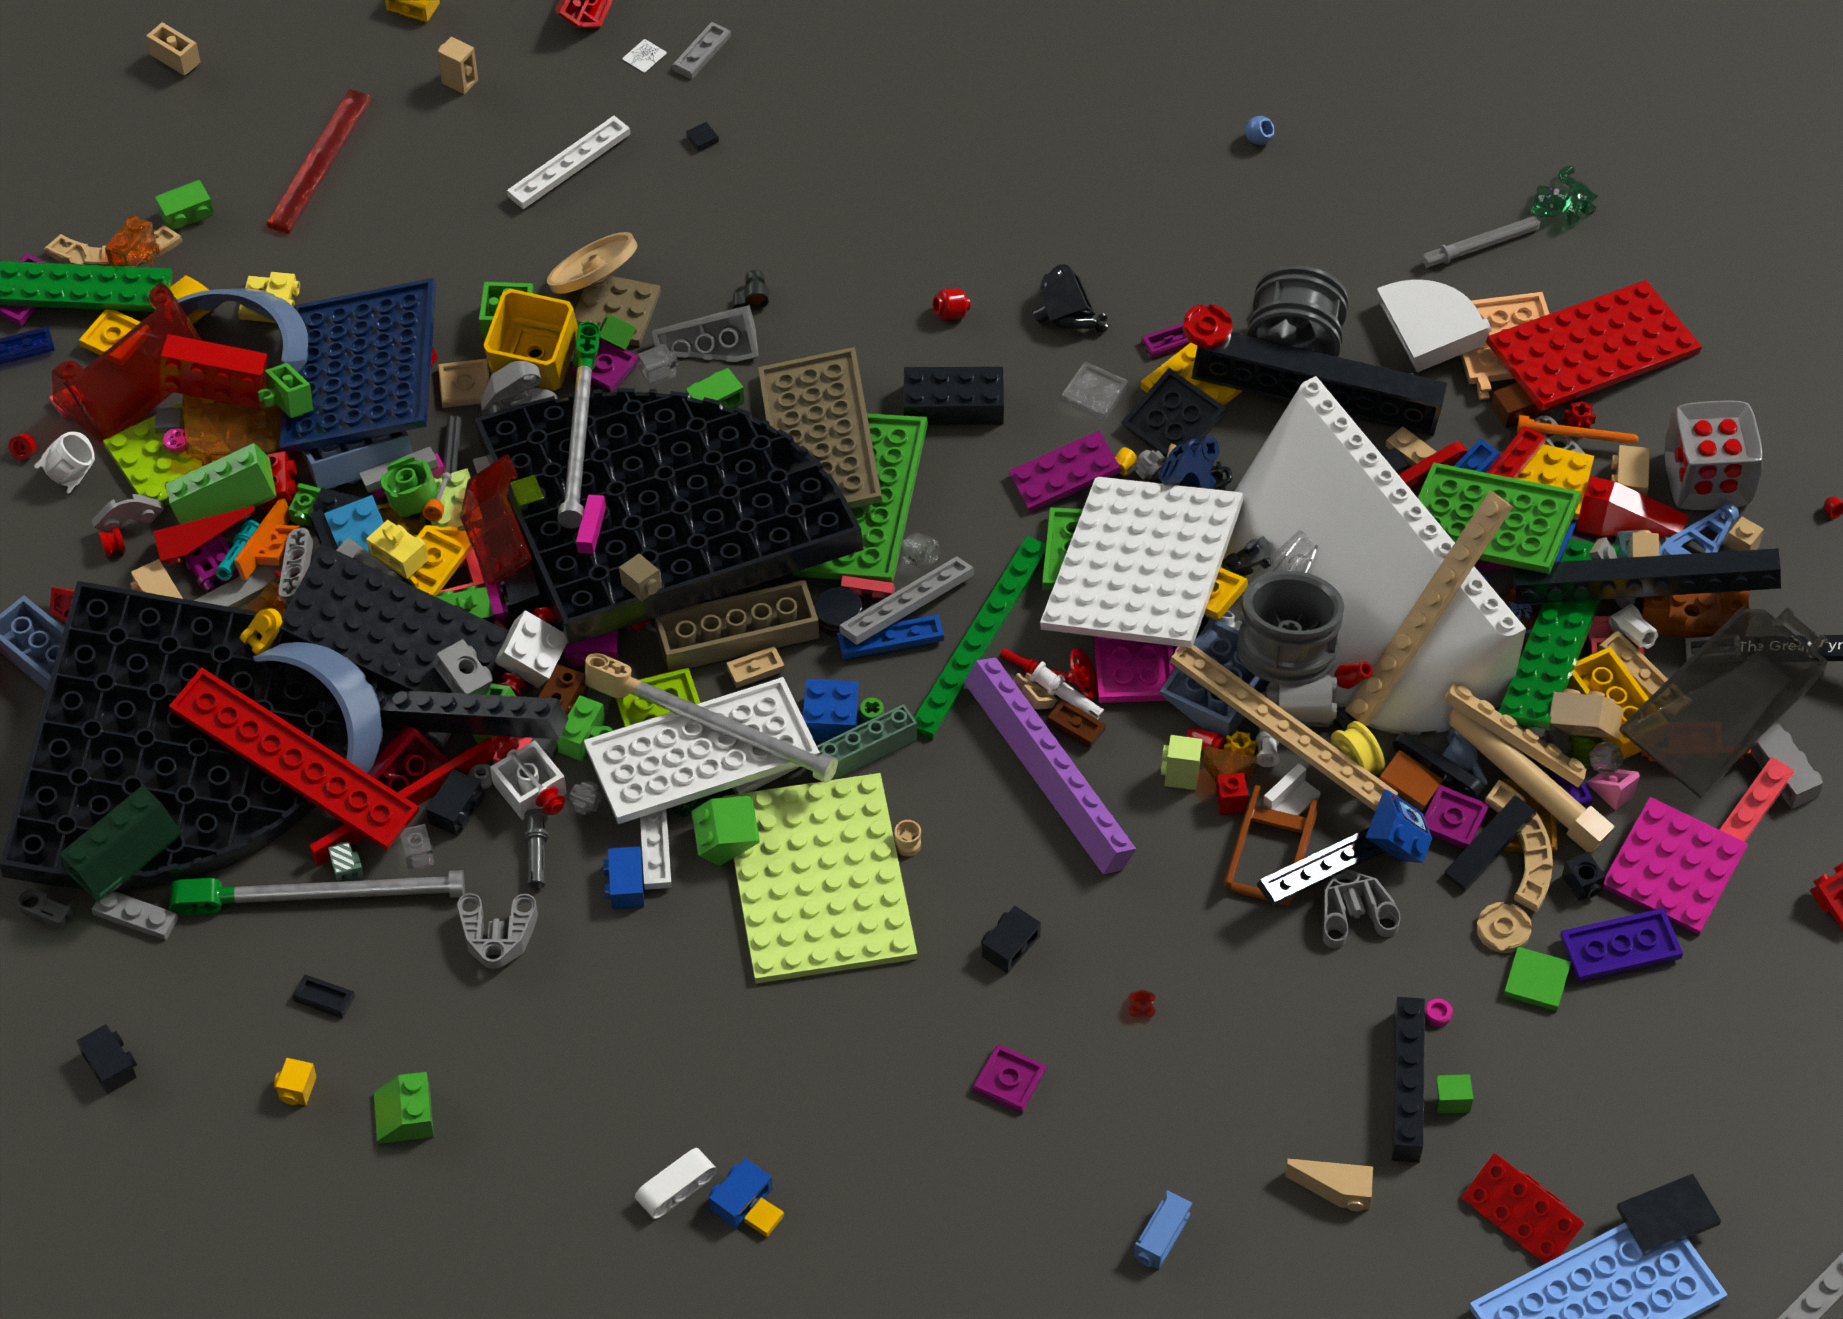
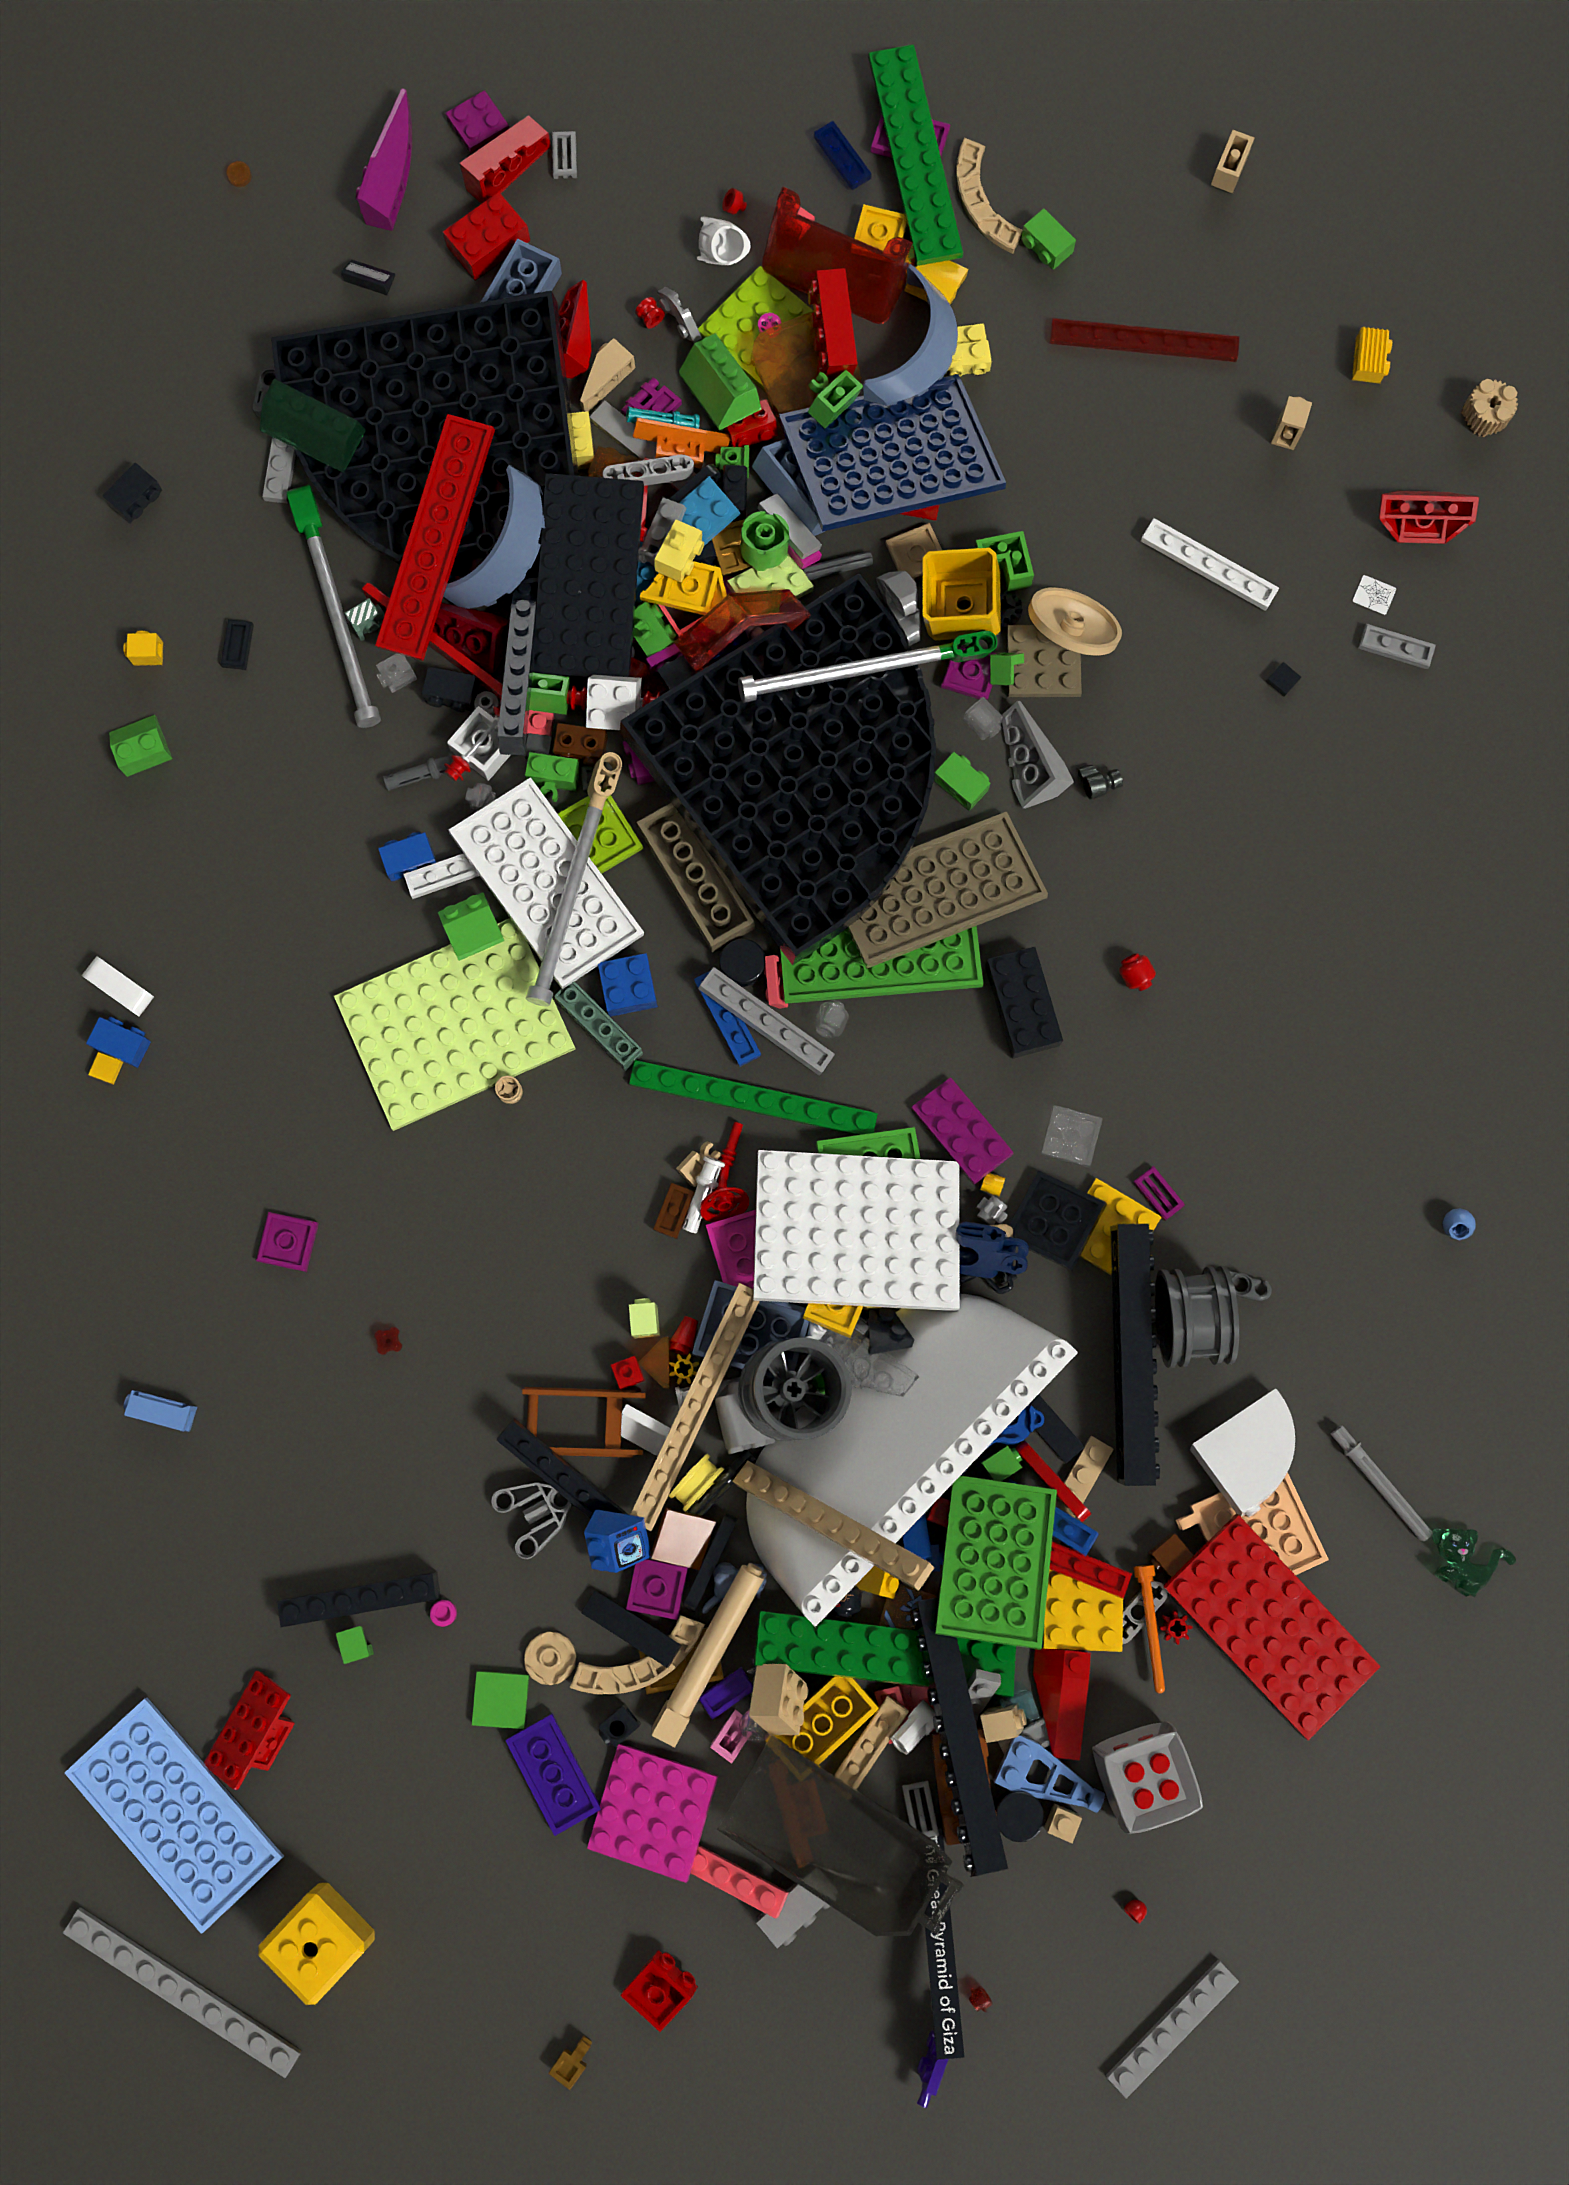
camera: 75 degrees right, 25 degrees up
(132, 243) = (980, 208): clear orange brick -> none
(168, 419) = (789, 308): dark grey tile -> none
(185, 539) = (662, 371): red wedge -> none
(267, 624) = (543, 464): yellow plate -> none
(437, 508) = (747, 570): orange hinge -> none
(462, 657) = (546, 654): light grey brick -> none
(519, 931) = (322, 766): light grey connector -> none
(526, 491) = (767, 642): clear neon green slope -> none
(591, 524) = (742, 710): dark pink piece -> none
(640, 577) = (681, 771): dark tan brick -> none
(755, 666) = (662, 905): tan plate -> none
(871, 703) = (651, 1019): bright green bush -> none
(1010, 939) = (423, 1207): black brick -> none
(1050, 766) = (615, 1197): medium lavender brick -> none
(1067, 301) = (1171, 1080): black torso -> none
(1207, 326) = (1146, 1228): red tile -> none
(1339, 1183) = (239, 1559): tan slope -> none
(1351, 674) = (775, 1458): red cone -> none
(1510, 731) = (742, 1632): tan plate -> none
(1632, 468) = (1116, 1692): tan brick -> none
(1668, 1214) = (267, 1866): black tile -> none
(1749, 1196) = (330, 1924): none -> yellow plate

